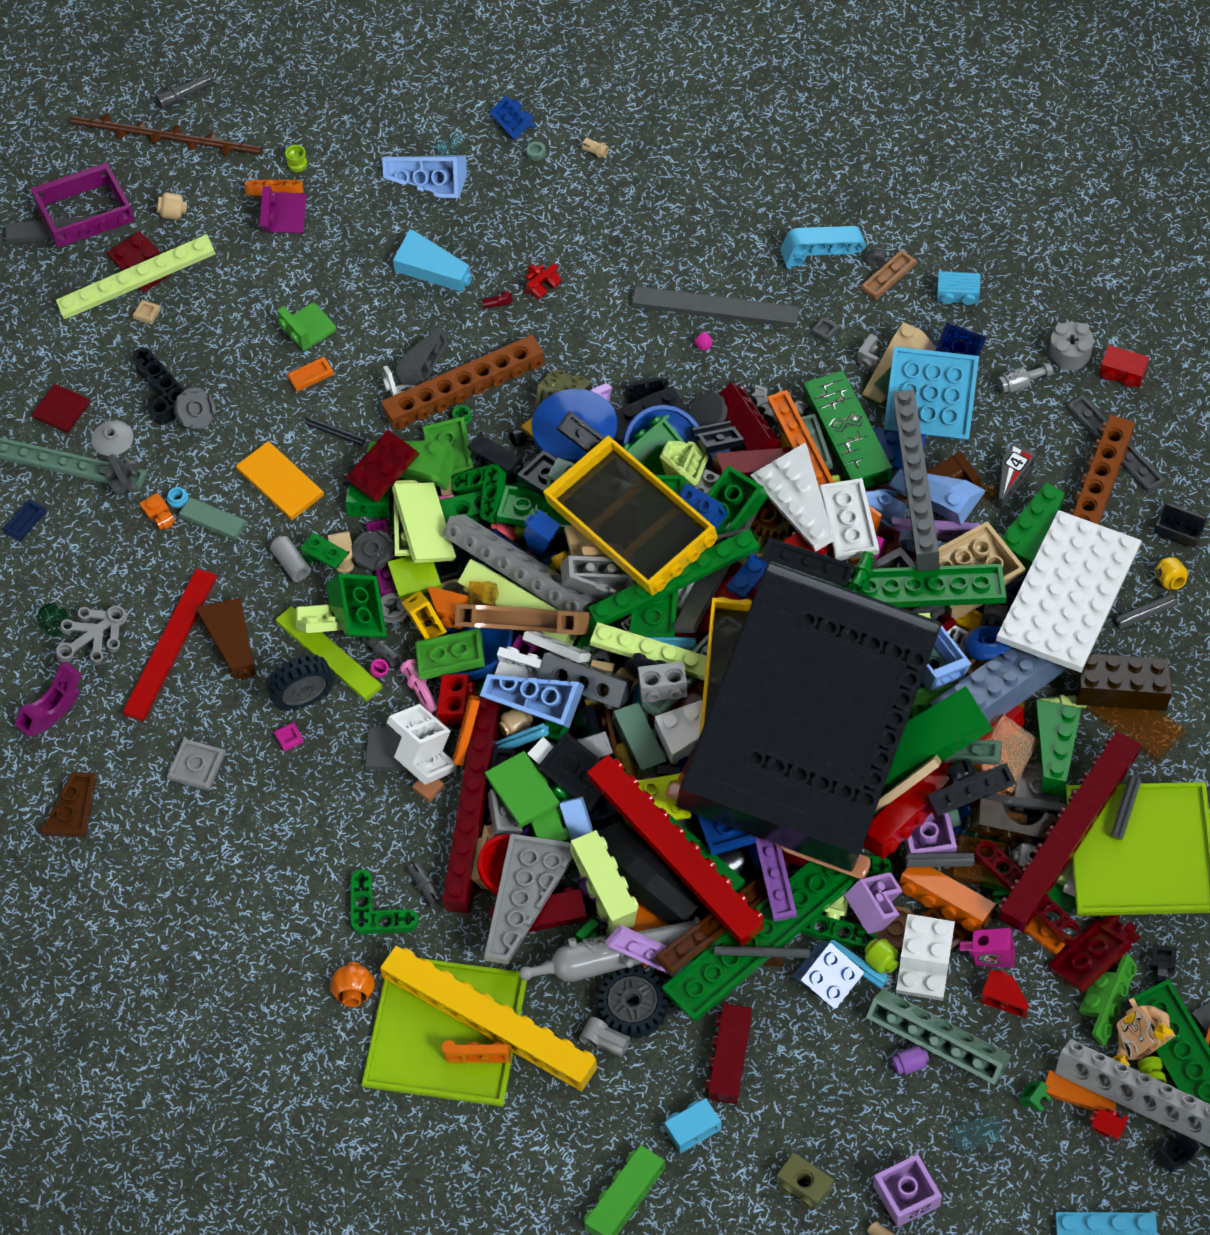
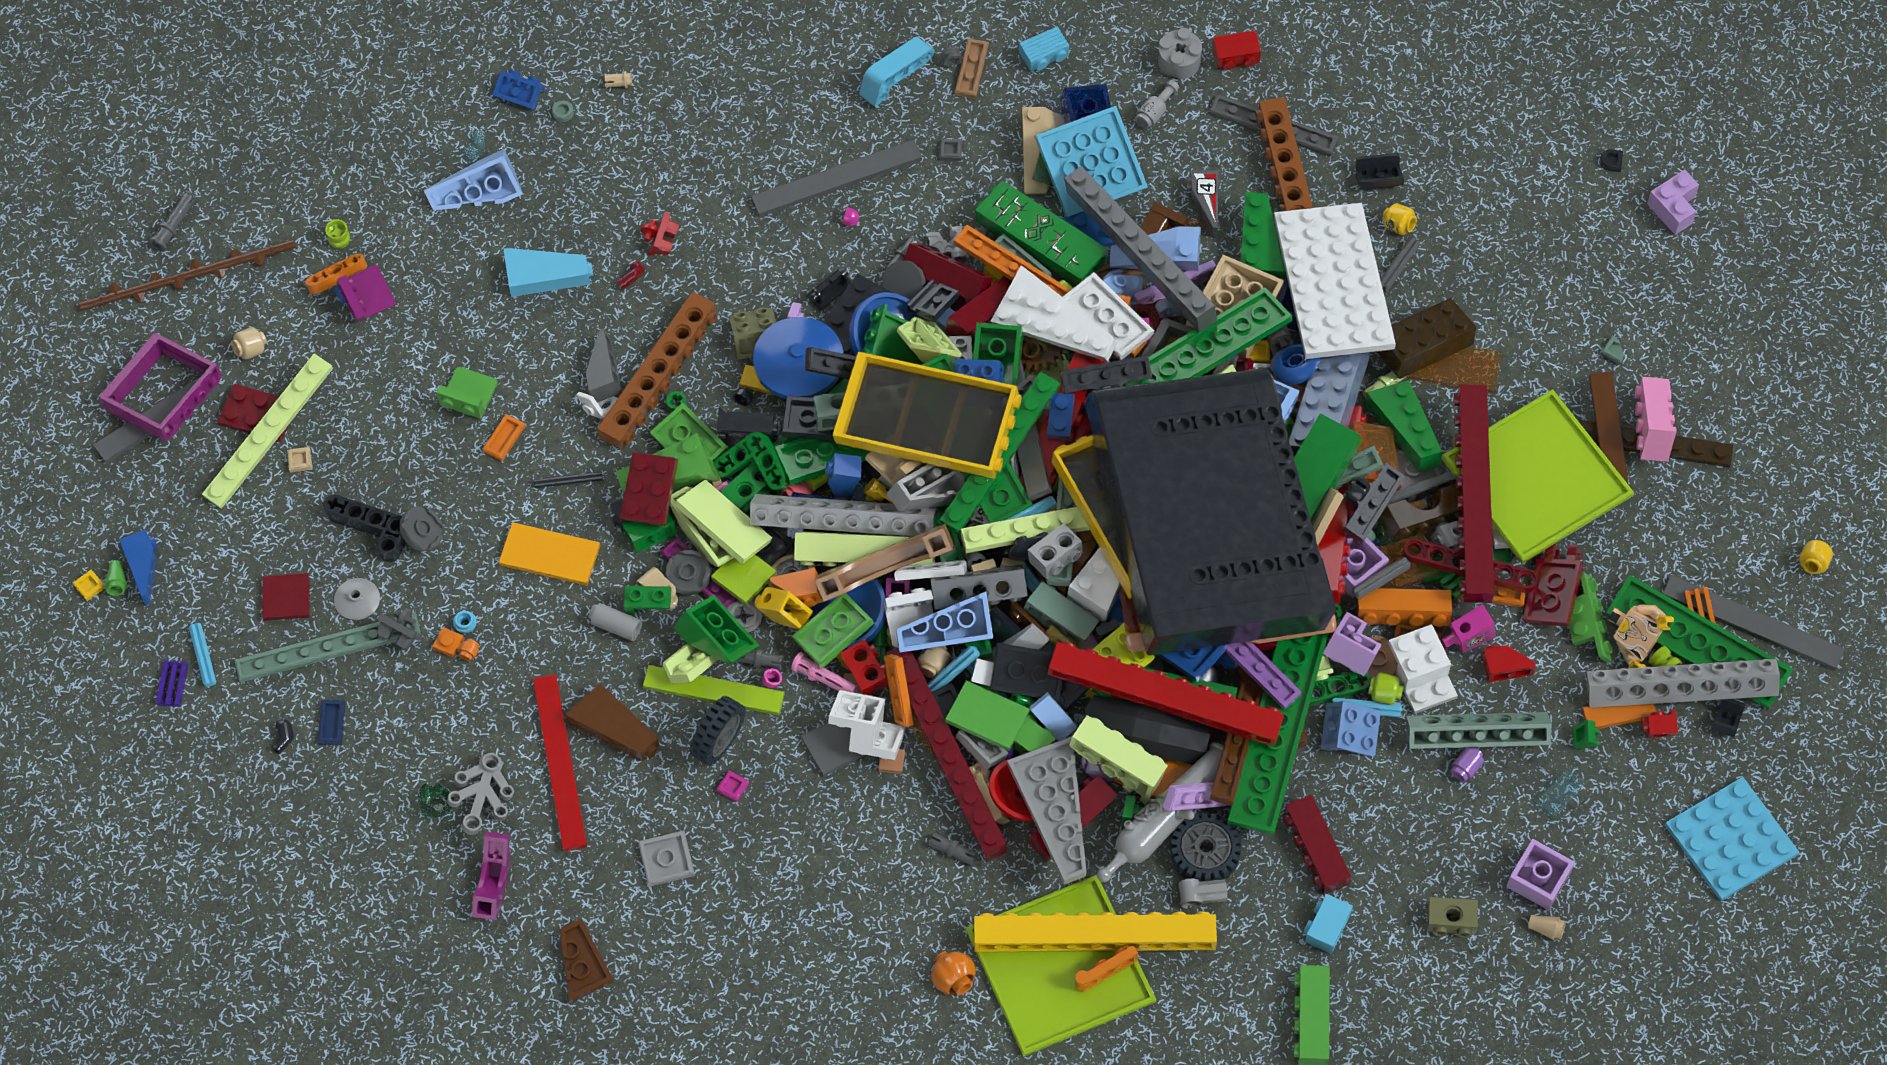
camera: 35 degrees left, 5 degrees up
(212, 518) = (512, 623): sand green tile -> none
(373, 917) = (925, 904): green beam -> none
(482, 593) = (827, 558): clear yellow bracket -> none
(762, 951) = (1293, 741): dark grey bar -> none
(862, 571) = (1155, 358): green pin -> none
(867, 353) = (1006, 156): light grey bracket -> none
(1125, 807) = (1504, 447): dark grey axle -> none
(1163, 960) = (1613, 563): black plate -> none

